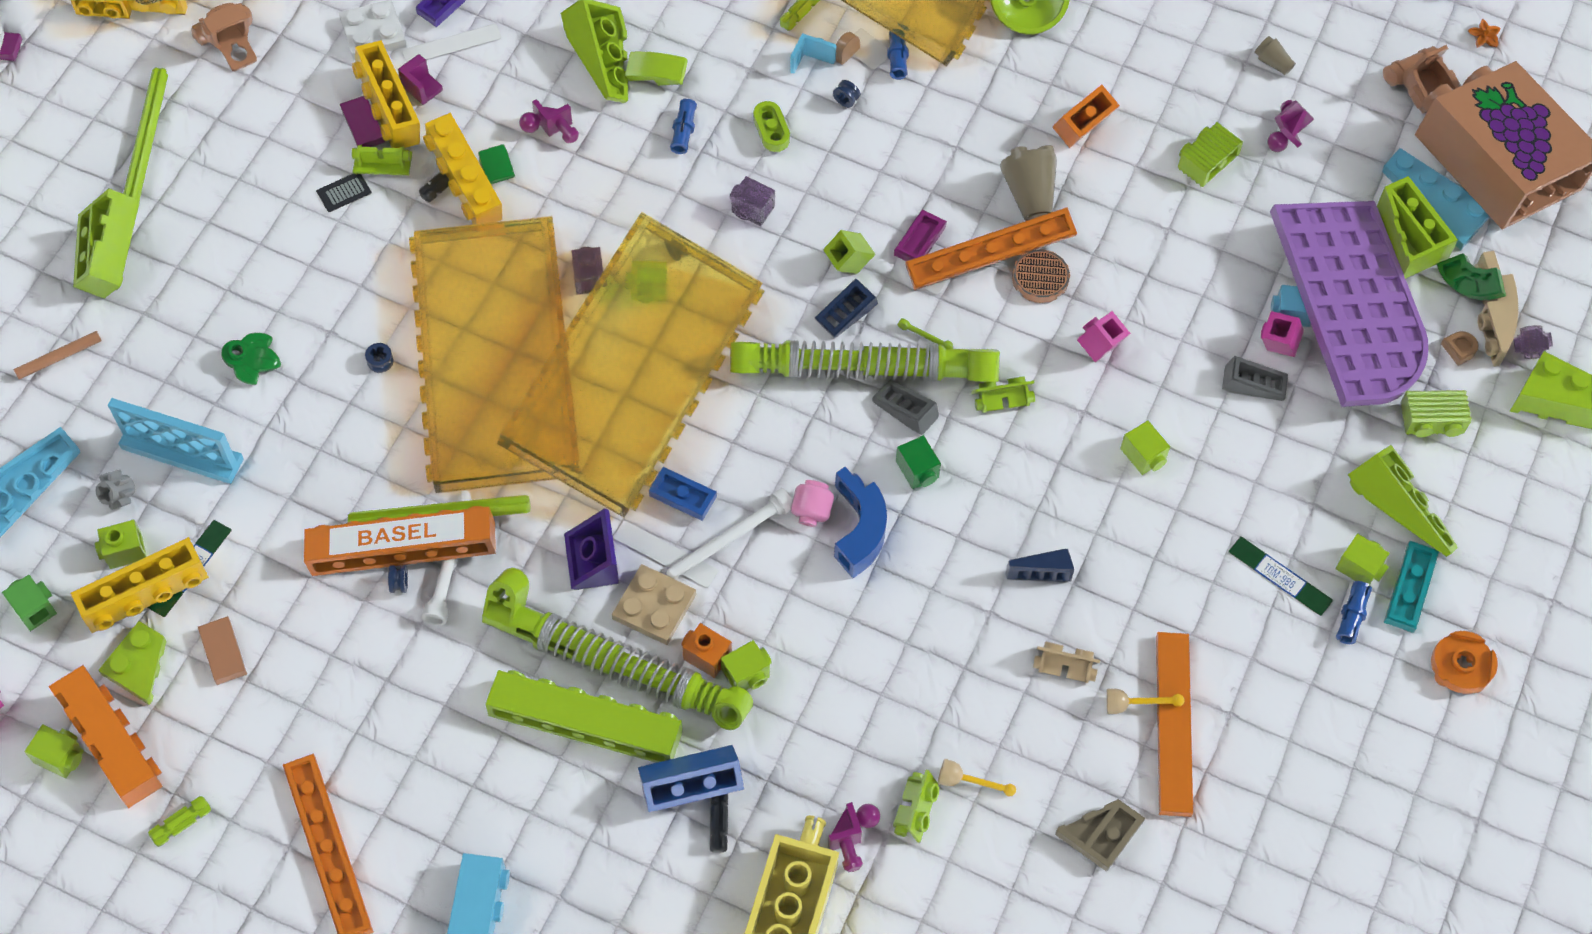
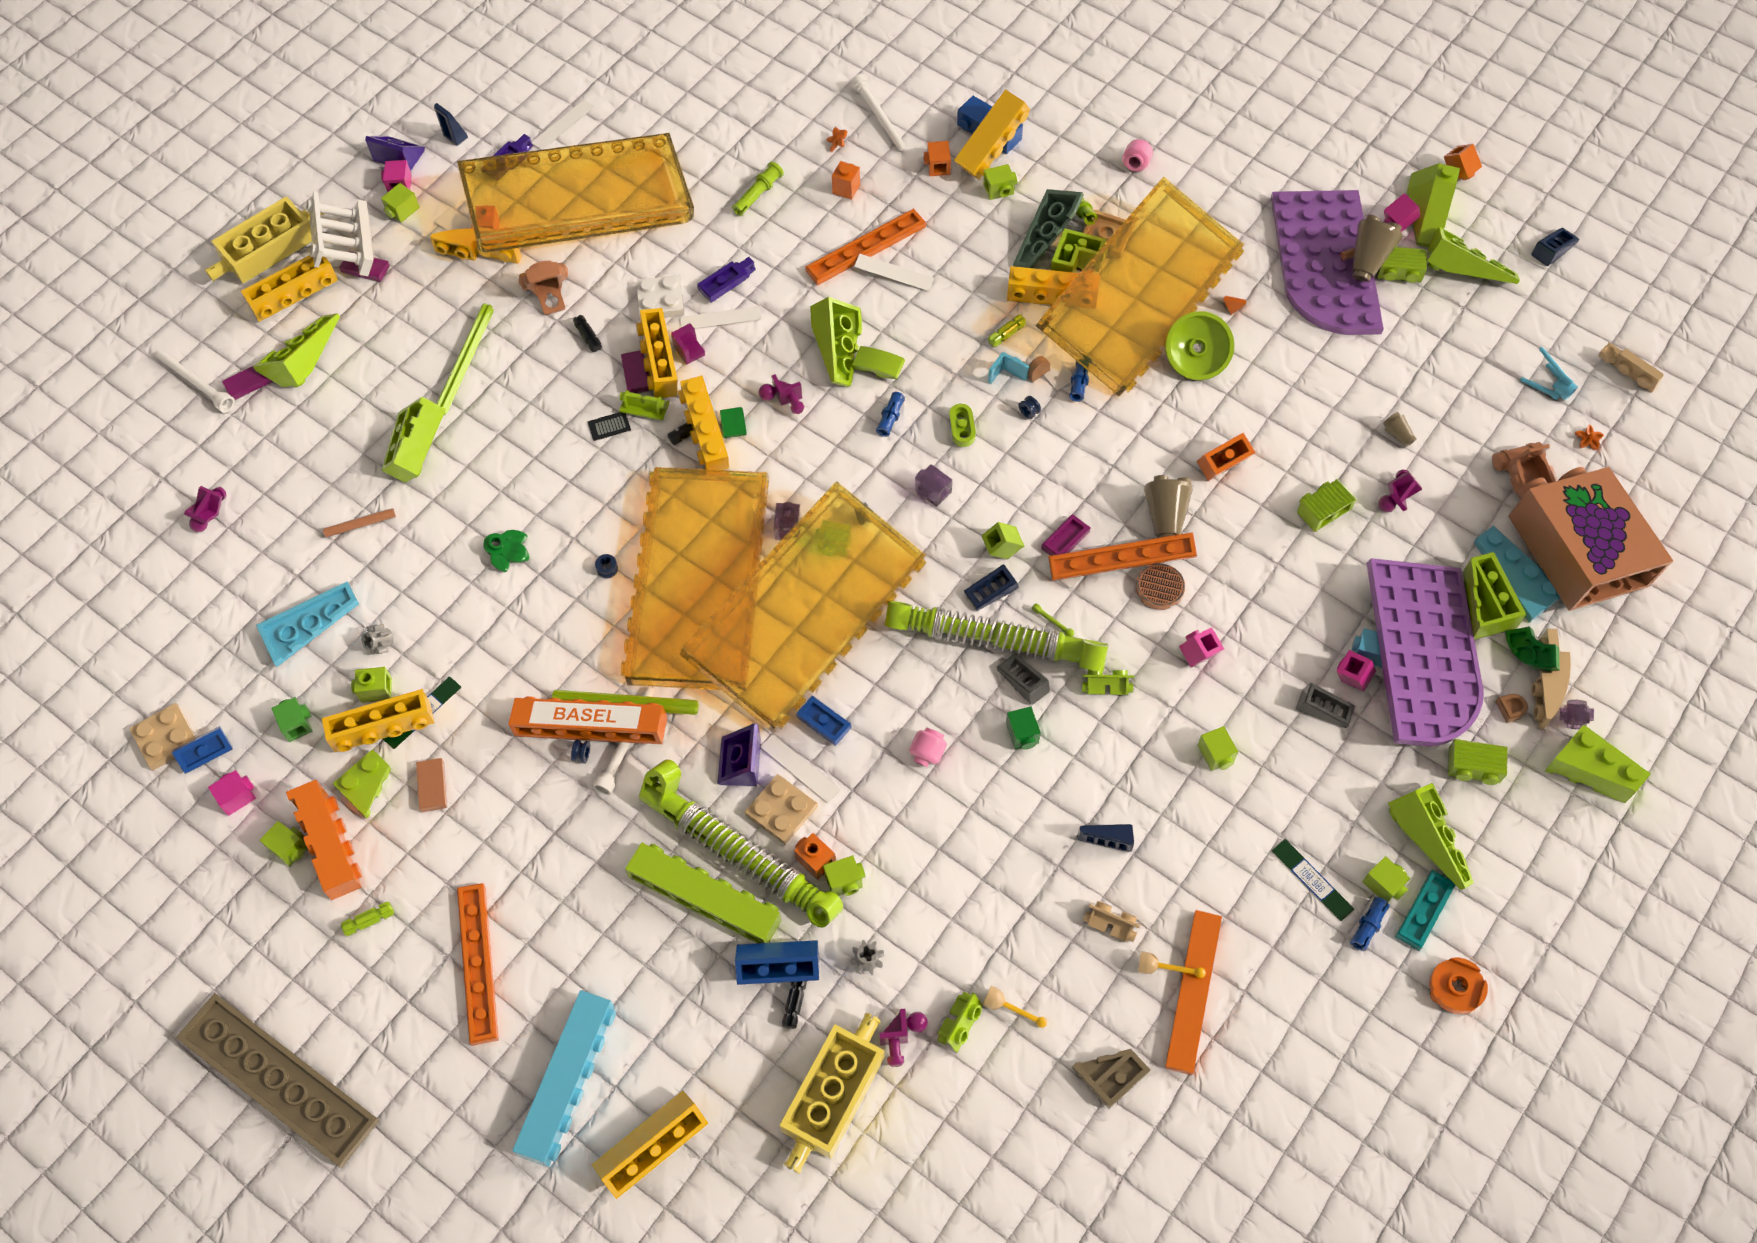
camera: 15 degrees right, 0 degrees up
(175, 441) = (431, 609): medium azure fence -> none
(292, 85) = (587, 333): none -> black axle
(779, 503) = (900, 743): white piece -> none
(798, 746) = (873, 953): none -> light grey gear
(864, 543) = (966, 786): blue arch -> none

